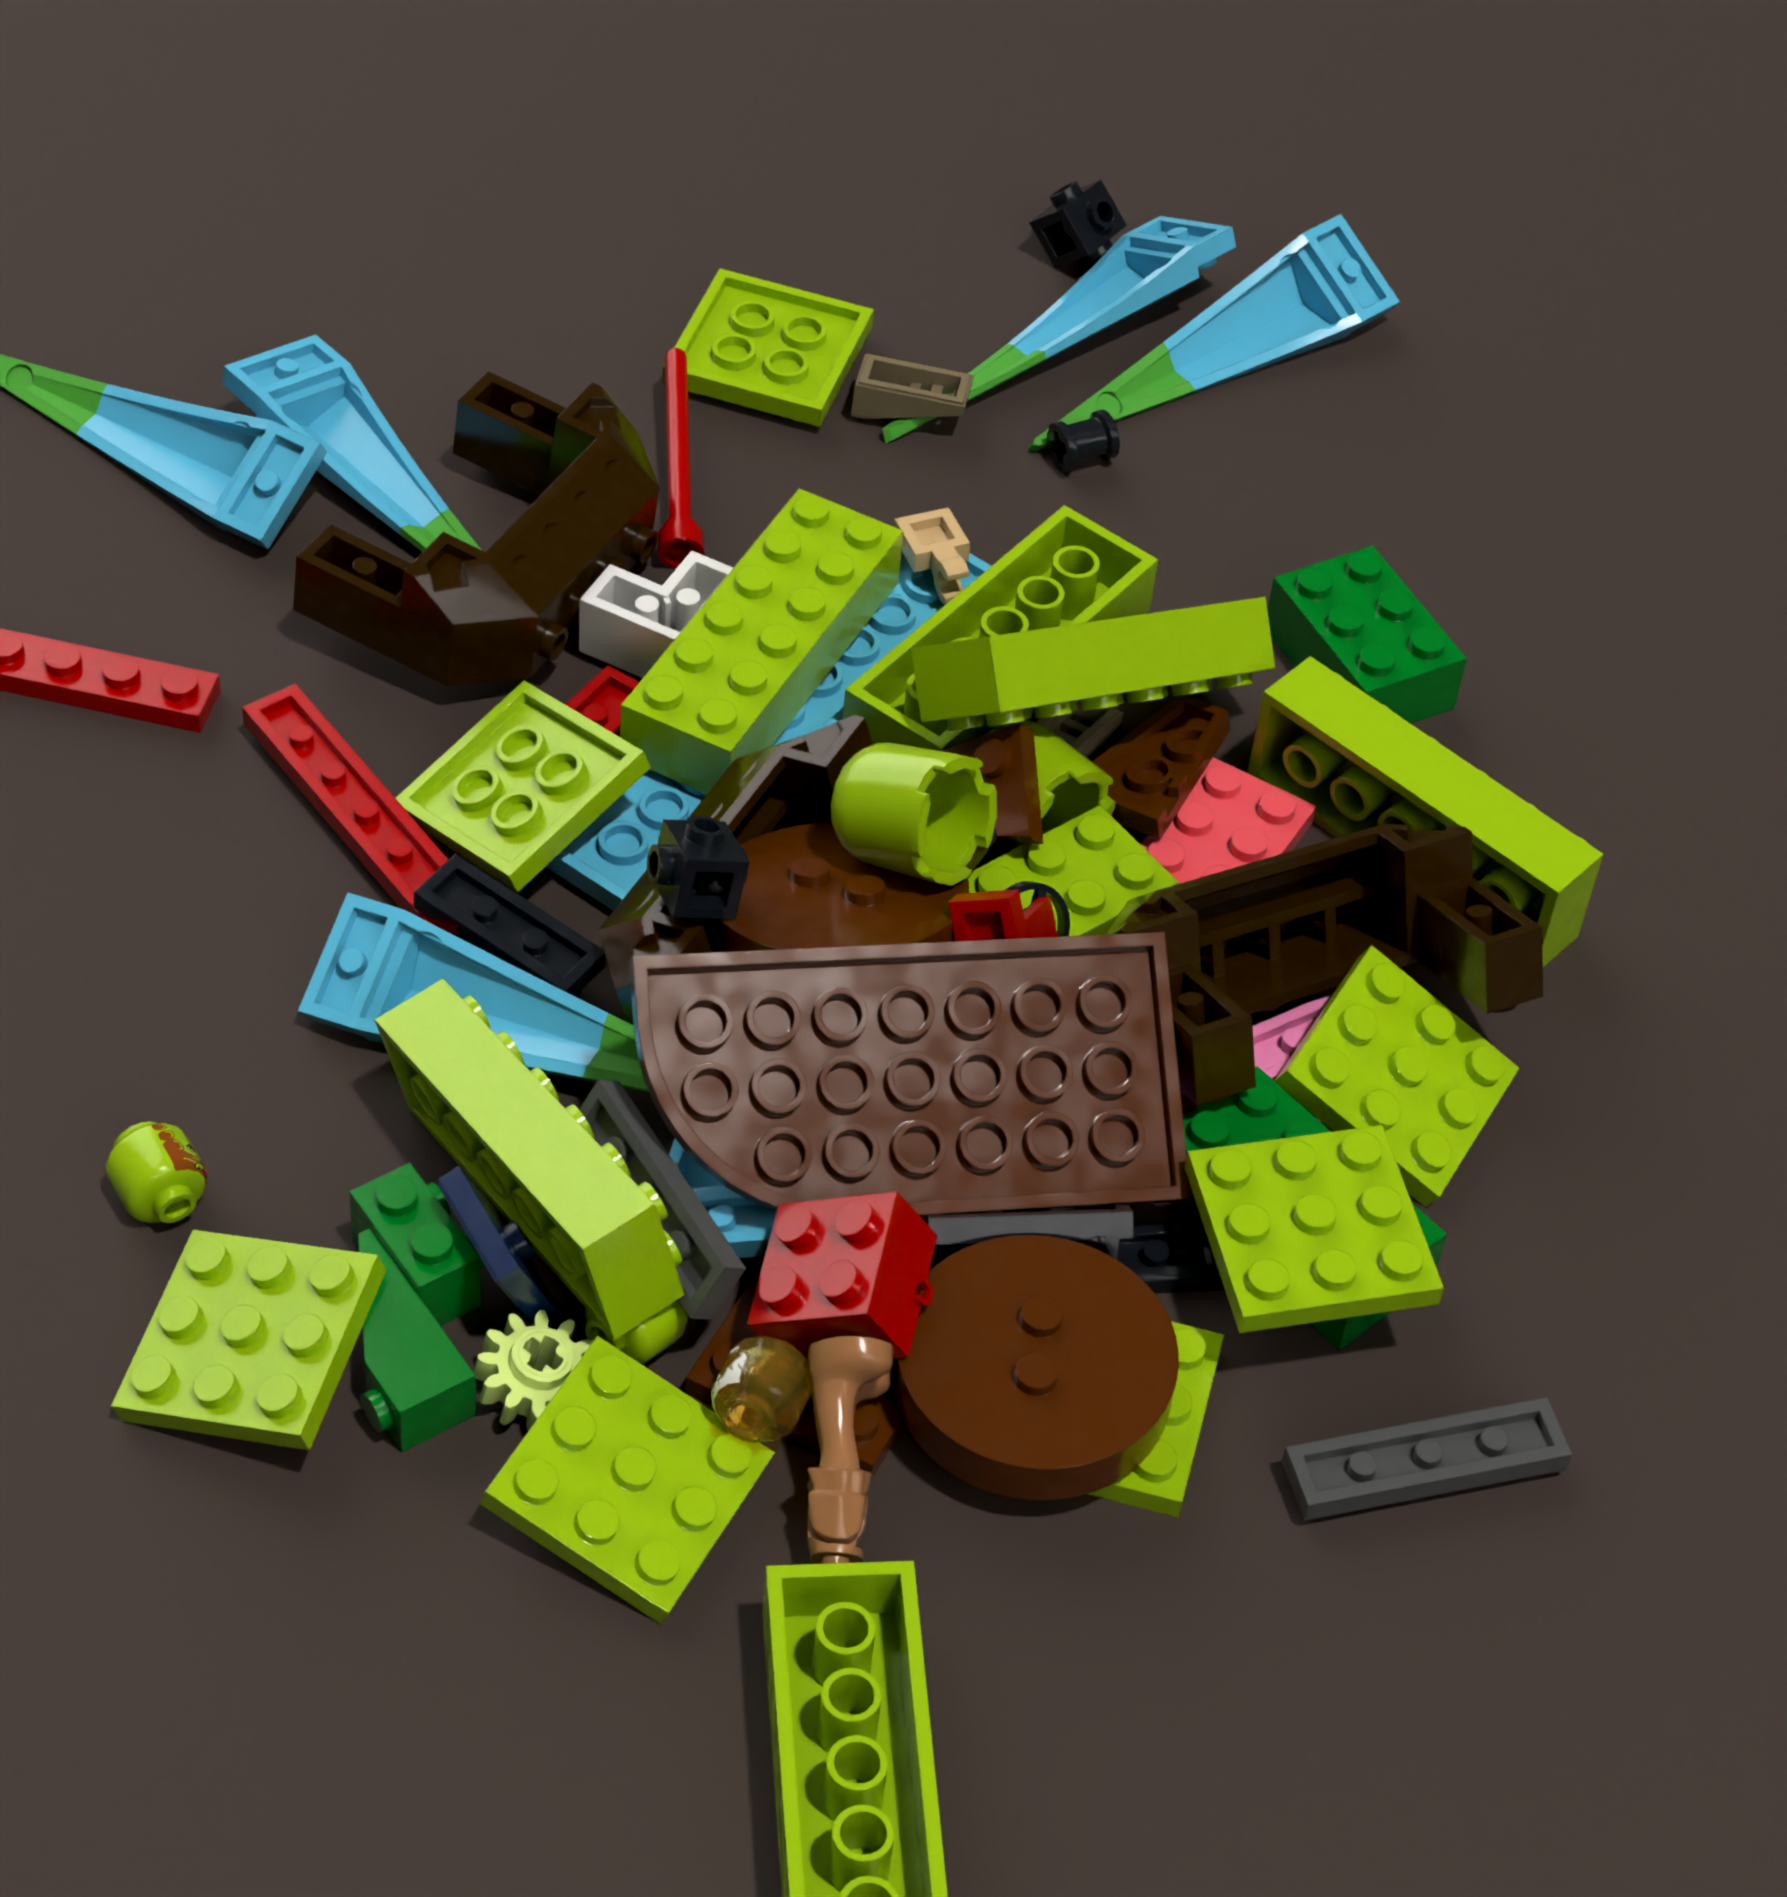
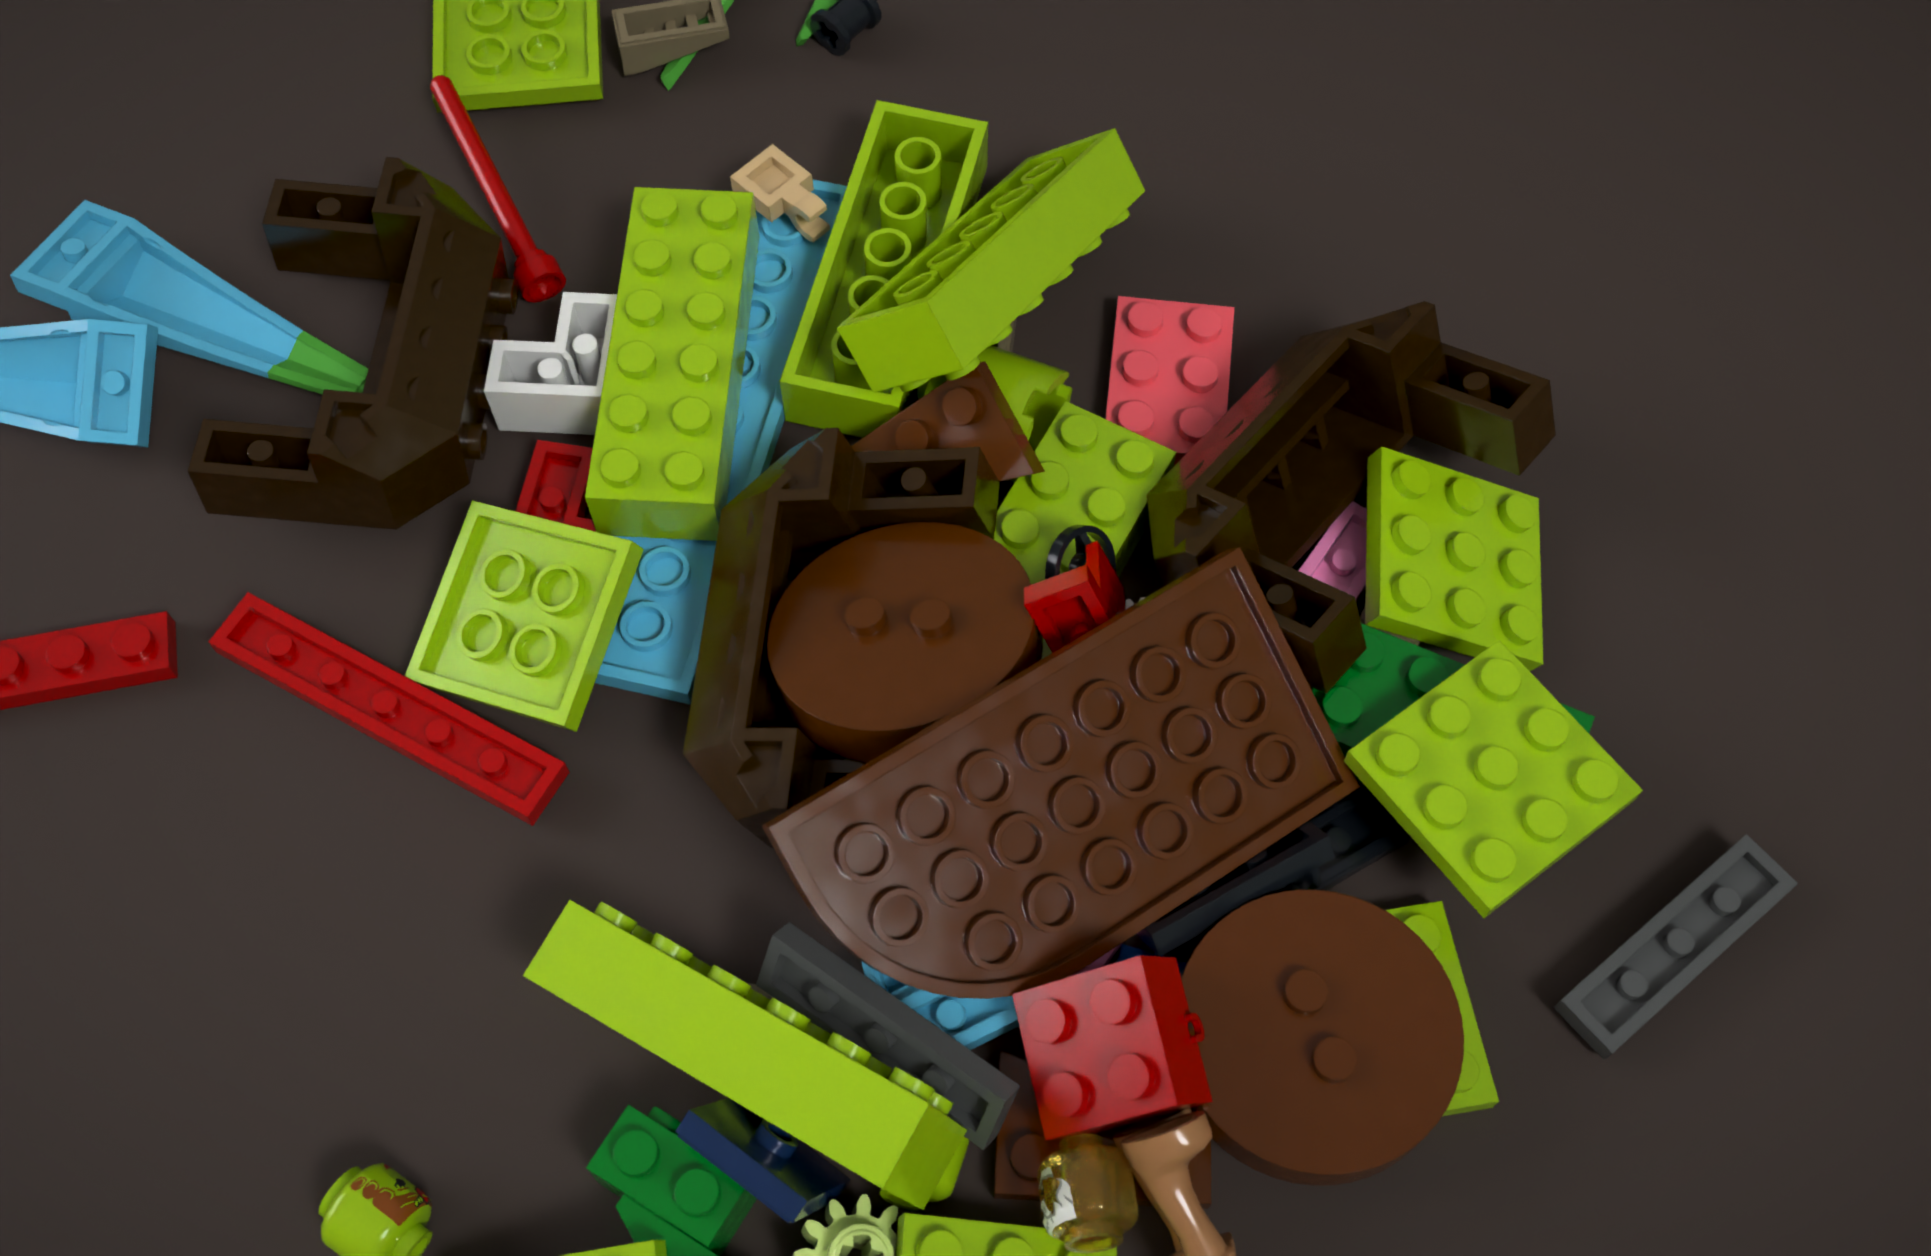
camera: 20 degrees left, 15 degrees up
(389, 955) = (507, 878): medium azure plate -> none
(508, 926) = (589, 779): black hinge -> none
(698, 868) = (770, 677): black brick -> none
(914, 810) = (939, 517): lime cylinder -> none
(1162, 762) = (1084, 329): reddish brown wing -> none
(1368, 630) = (1194, 124): green brick -> none
(1376, 769) = (1318, 270): lime brick -> none

